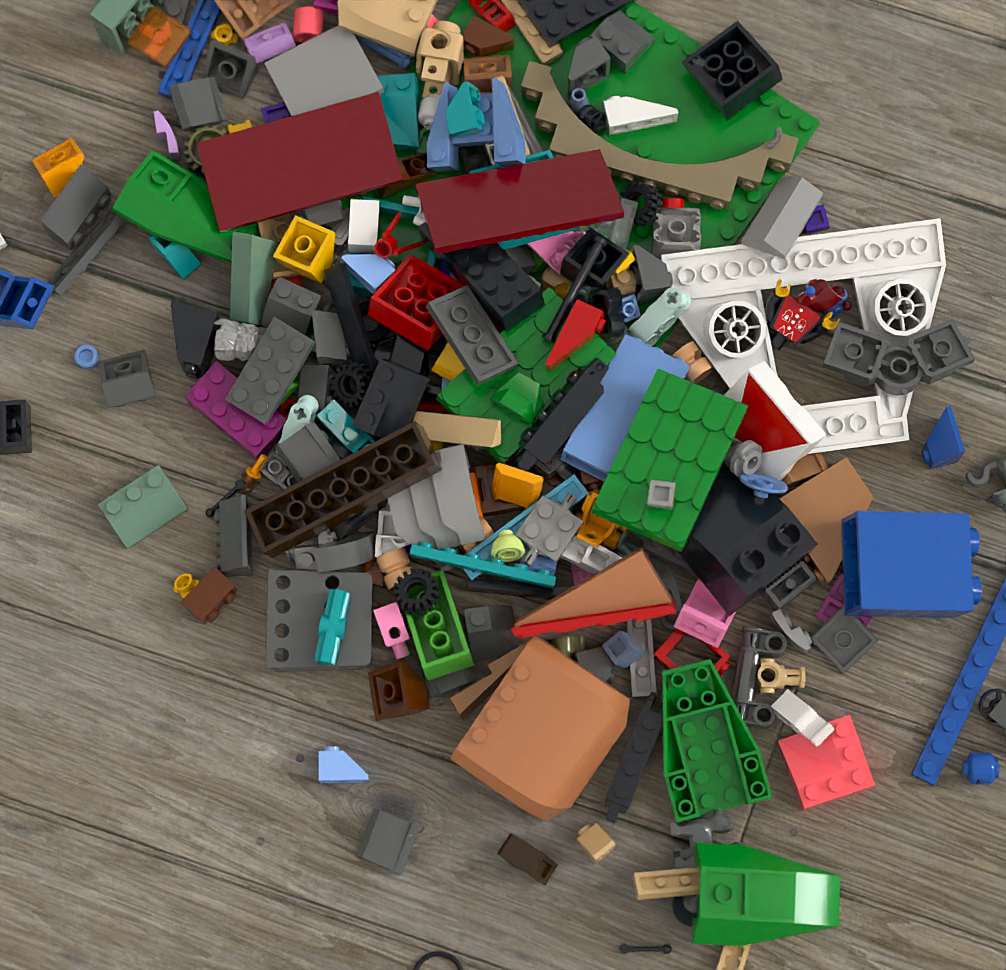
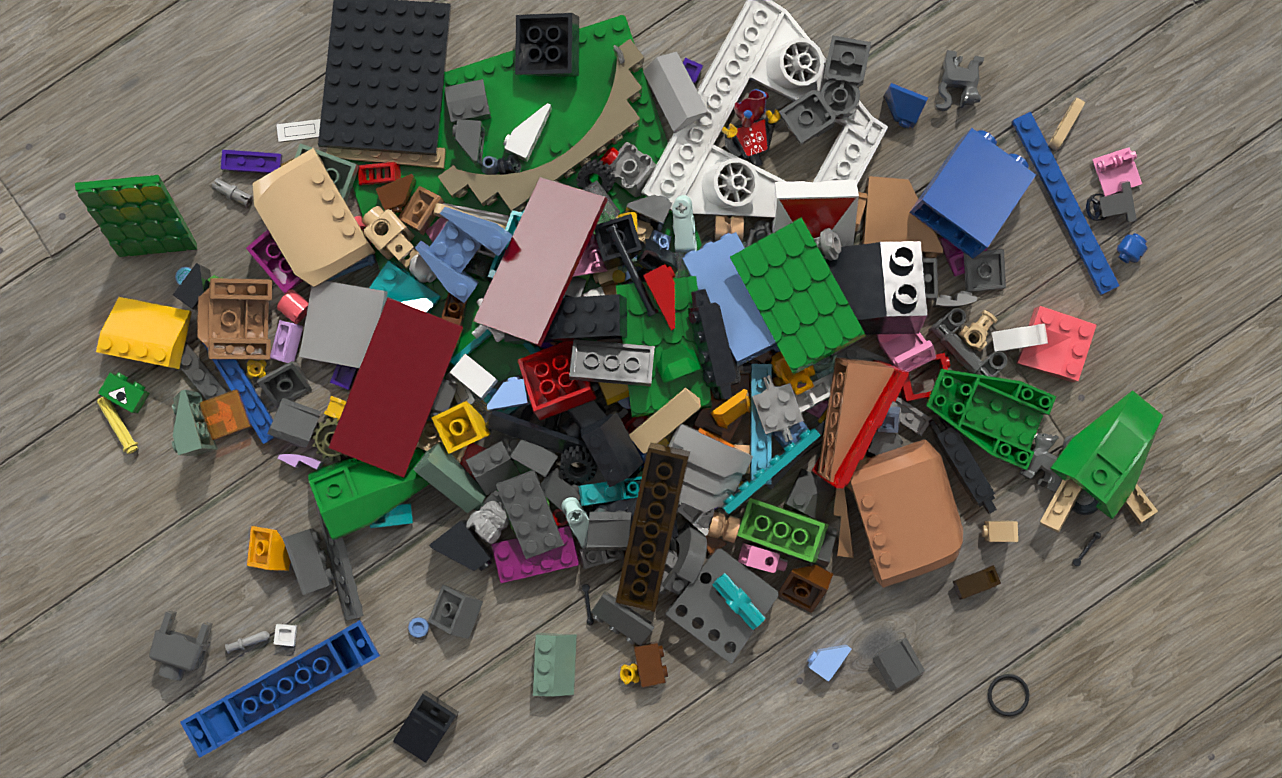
camera: 60 degrees left, 10 degrees up
(253, 473) = (586, 575): piece -> none
(388, 244) = (502, 371): red plant -> none
(421, 604) = (767, 527): black tyre -> none
(464, 113) = (448, 250): teal slope -> none
(507, 547) = (769, 445): yellowish green brick -> none
(661, 494) = (822, 321): light grey tile -> none
(763, 484) = (855, 245): medium blue dish -> none

